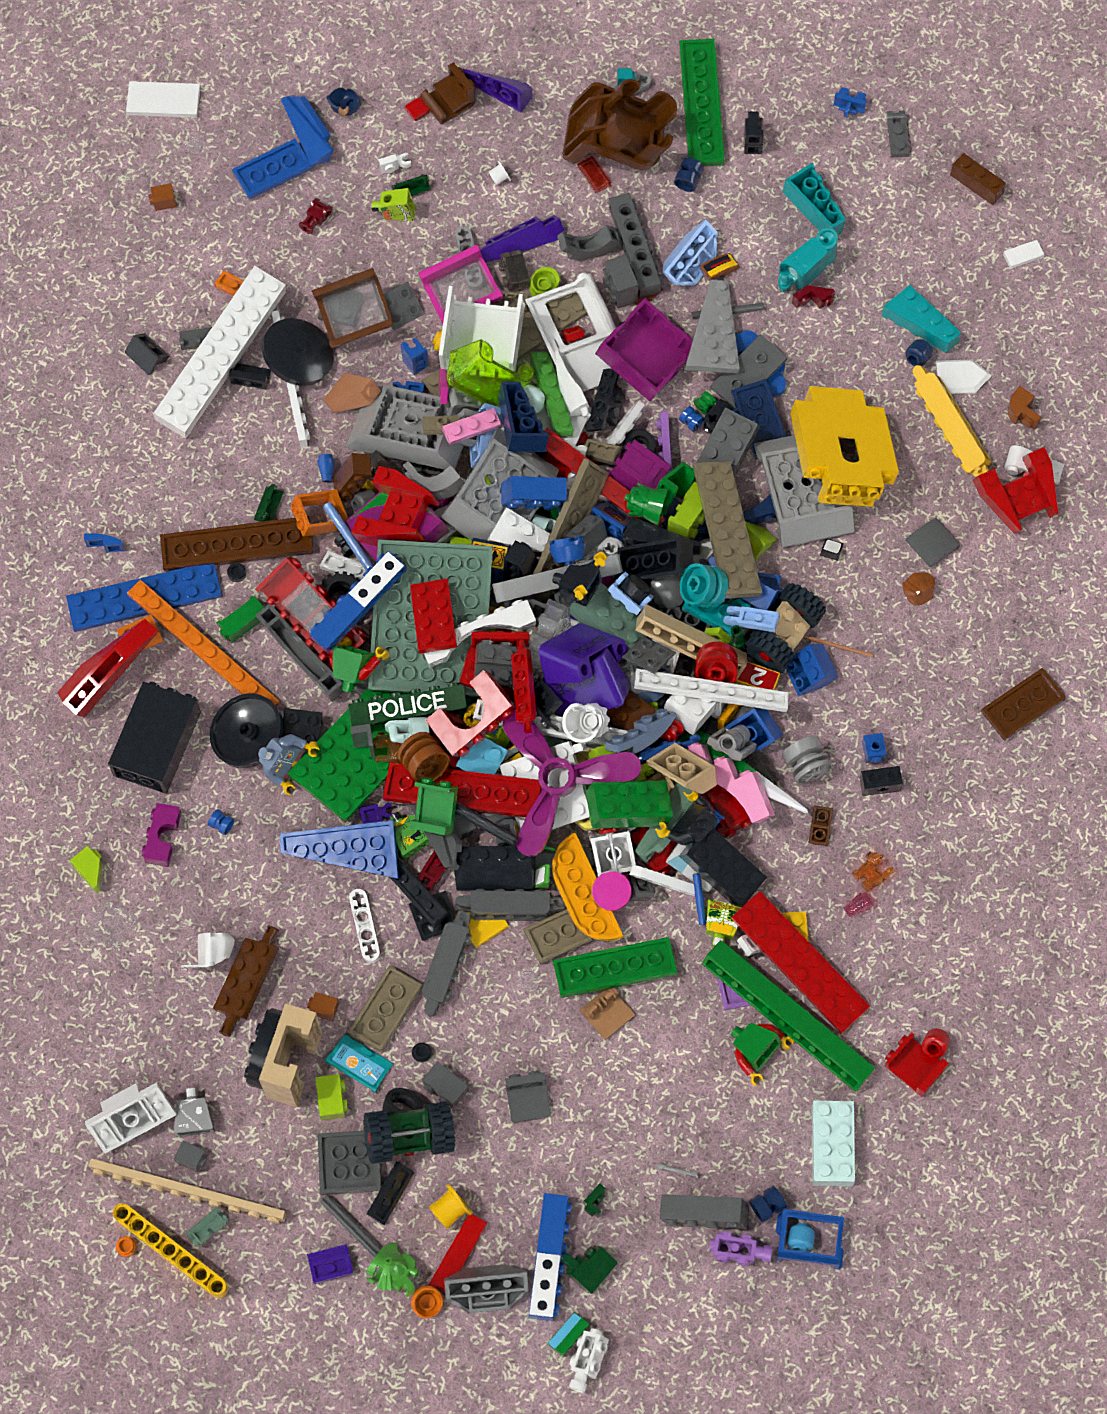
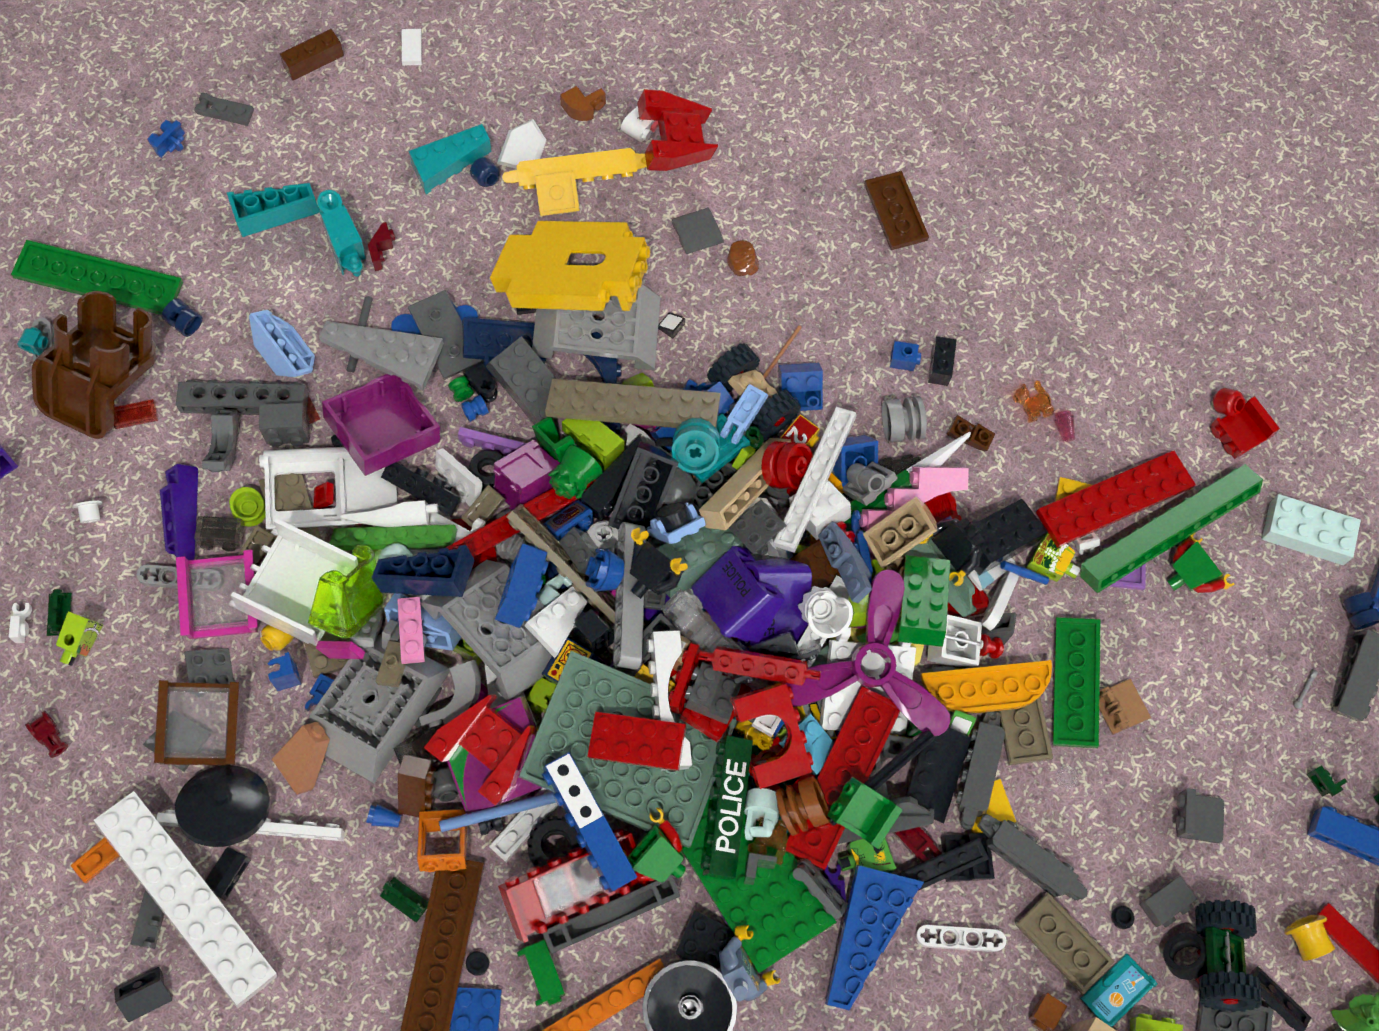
camera: 80 degrees left, 0 degrees up
(366, 797) = (820, 888): none -> dark grey plate
(611, 891) = (1003, 654): dark pink tile -> none
(718, 266) = (305, 324): slope -> none
(753, 133) = (164, 239): black hips -> none
(920, 415) = (557, 193): none -> yellow tile

